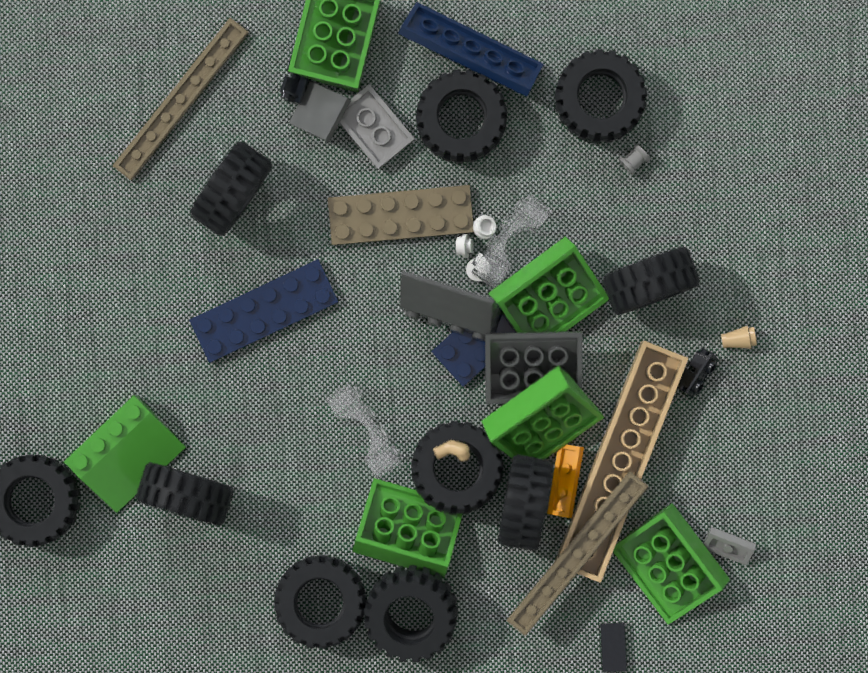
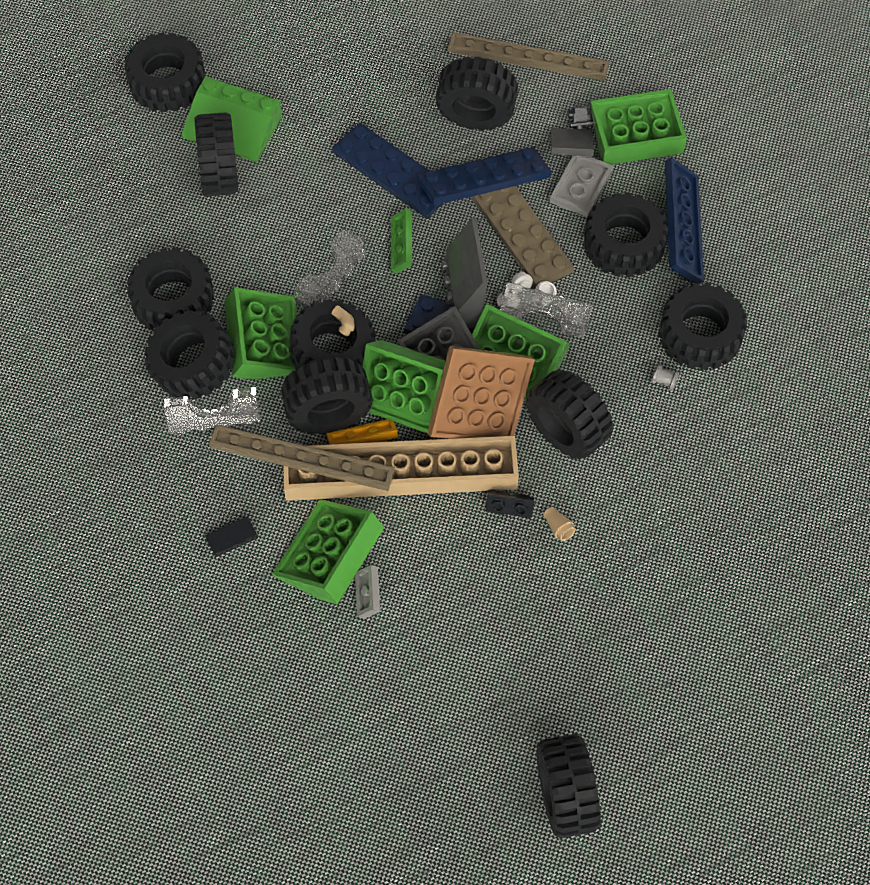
camera: 70 degrees right, 25 degrees down
(323, 224) = (484, 176): none -> dark blue plate
(360, 343) = (401, 241): none -> bright green plate
(471, 638) = (185, 416): none -> clear arch
(596, 356) = (480, 394): none -> medium nougat plate

